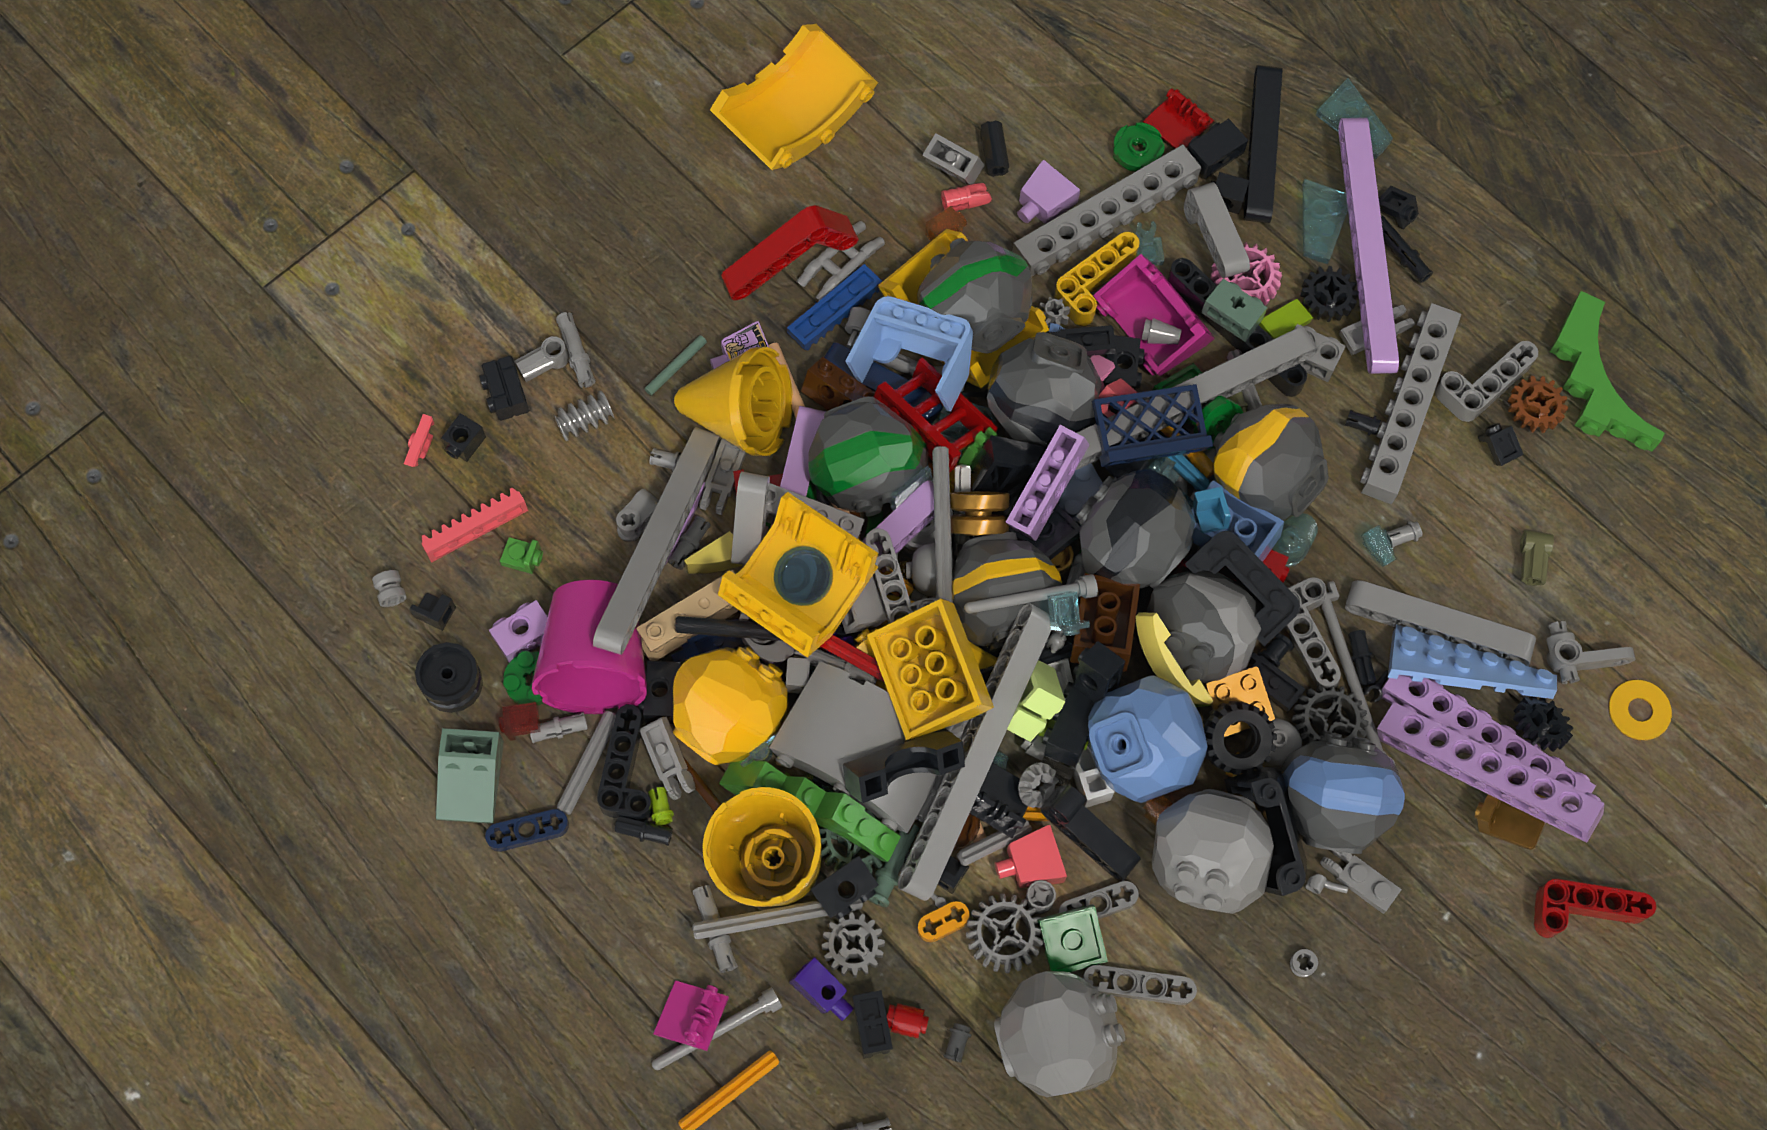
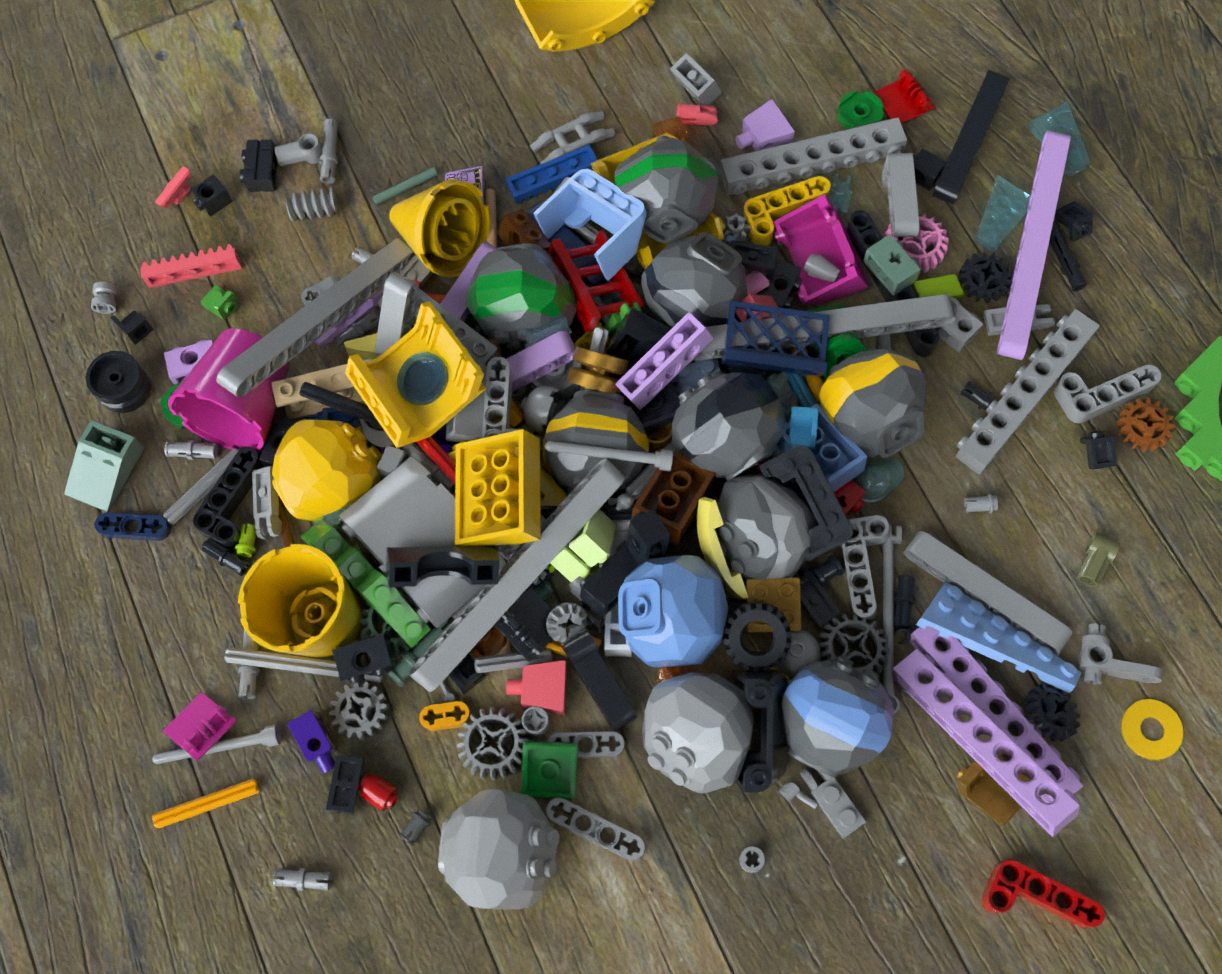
camera: 25 degrees right, 0 degrees up
(520, 720) = (160, 433): clear red bracket -> none
(785, 245) = (524, 107): red beam -> none
(942, 523) = (560, 370): light grey axle -> none
(994, 148) = (735, 81): black axle -> none
(1065, 613) = (634, 476): clear light blue bracket -> none
(1217, 147) = (928, 129): black brick -> none
(1379, 545) = (954, 506): clear light blue cone -> none

